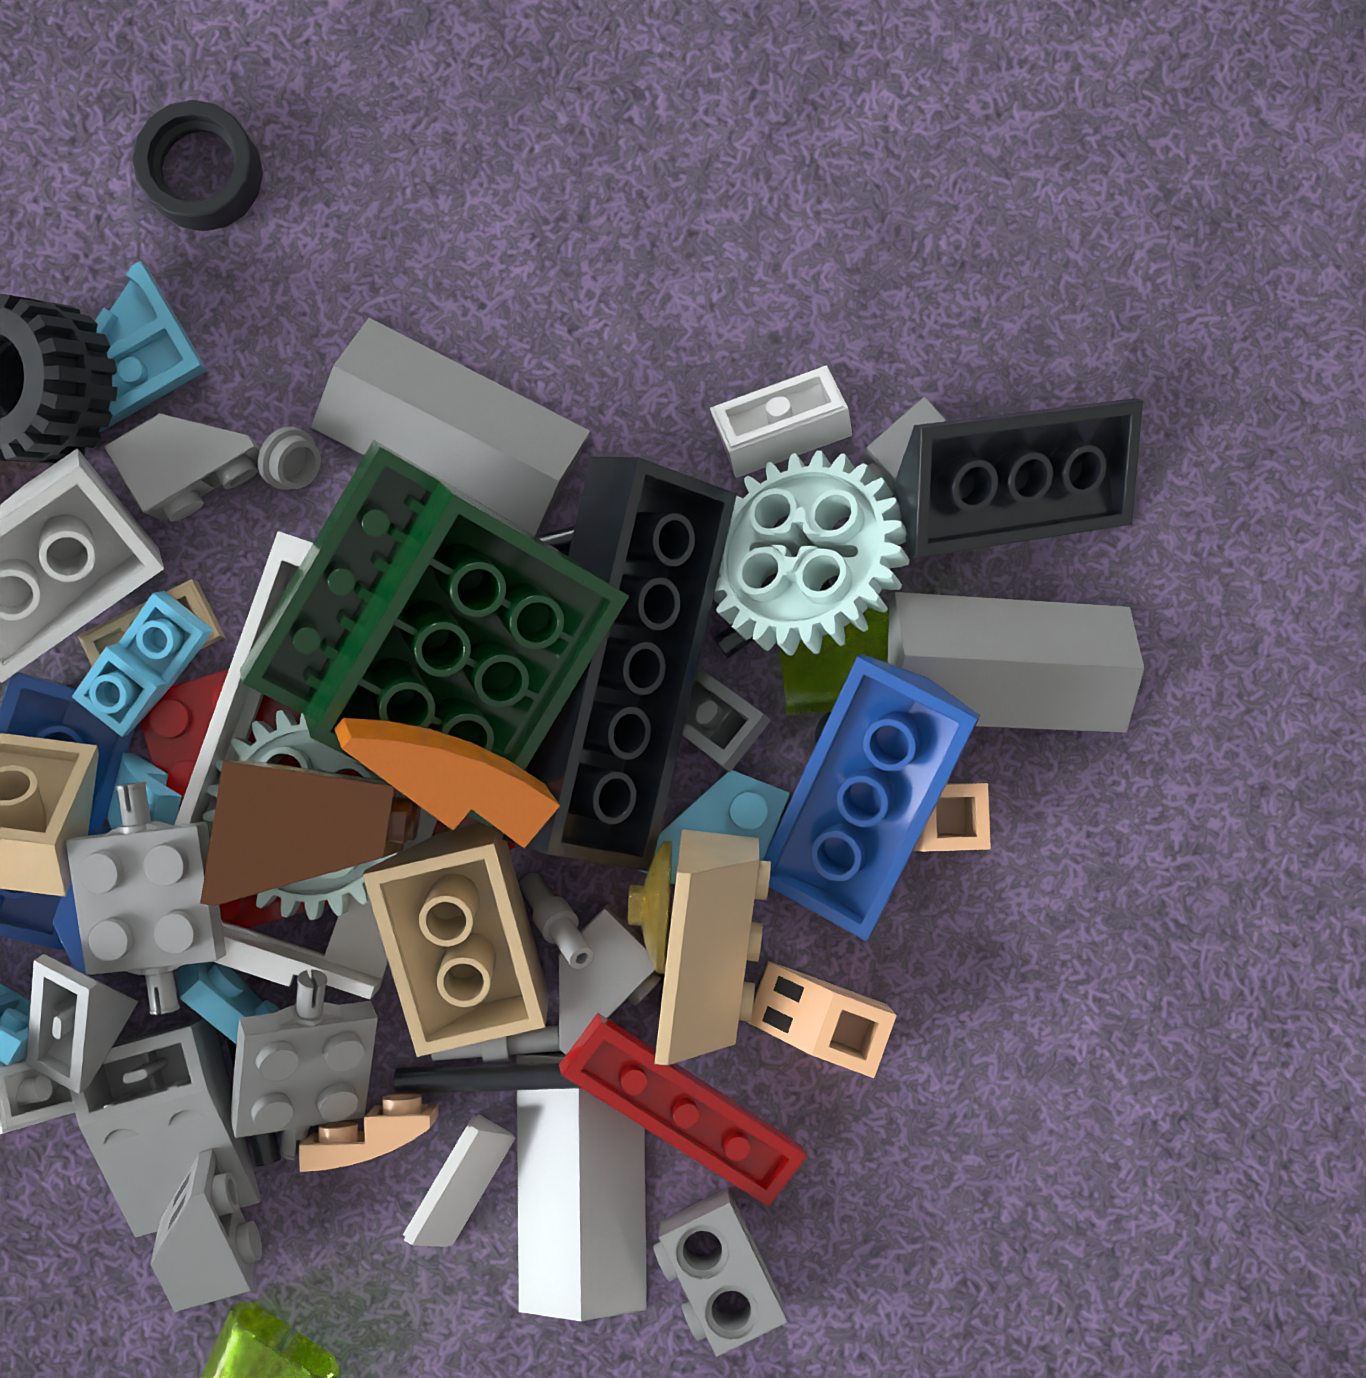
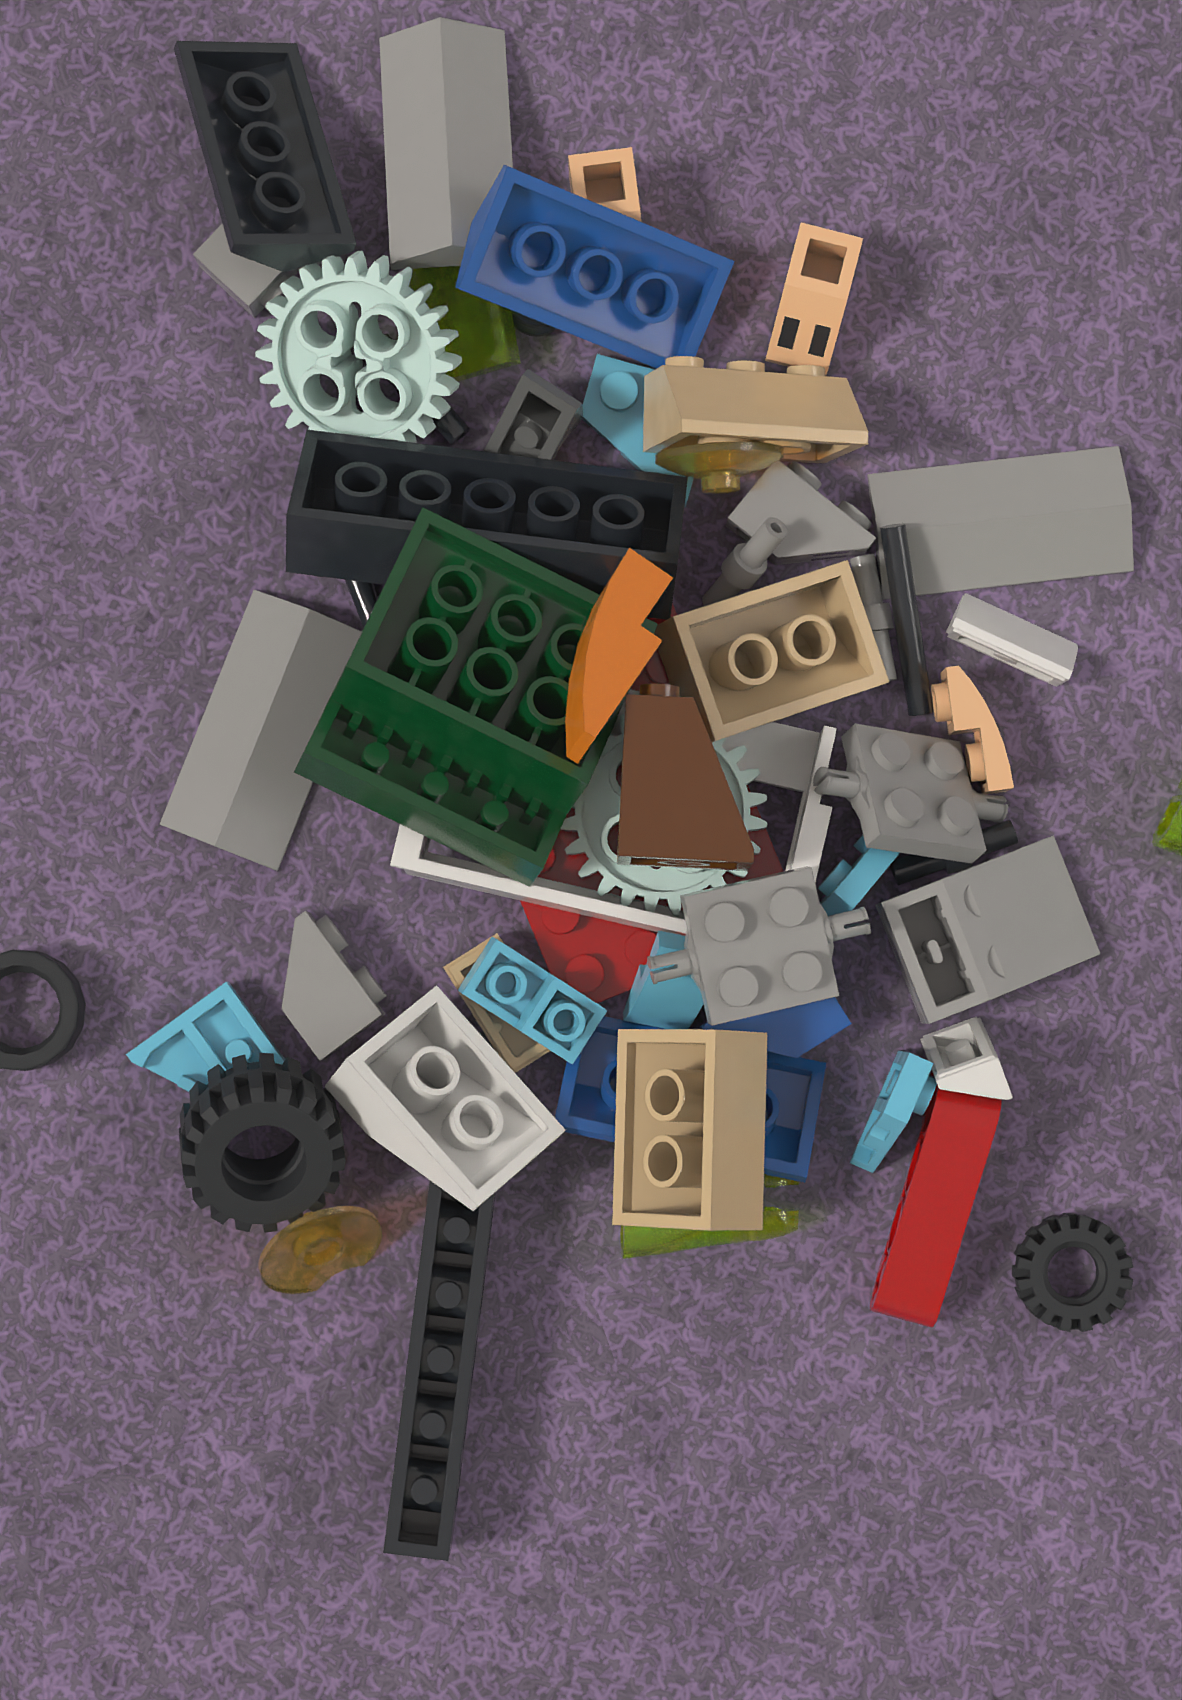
camera: 95 degrees left, 0 degrees up
(72, 1023) = (888, 1010): light grey slope -> none
(203, 1239) = (1091, 881): light grey slope -> none
(289, 459) = (312, 883): light grey plate -> none
(682, 1110) = (916, 423): red plate -> none
(731, 1267) = (1063, 365): light grey brick -> none
(782, 421) = (225, 399): white slope -> none

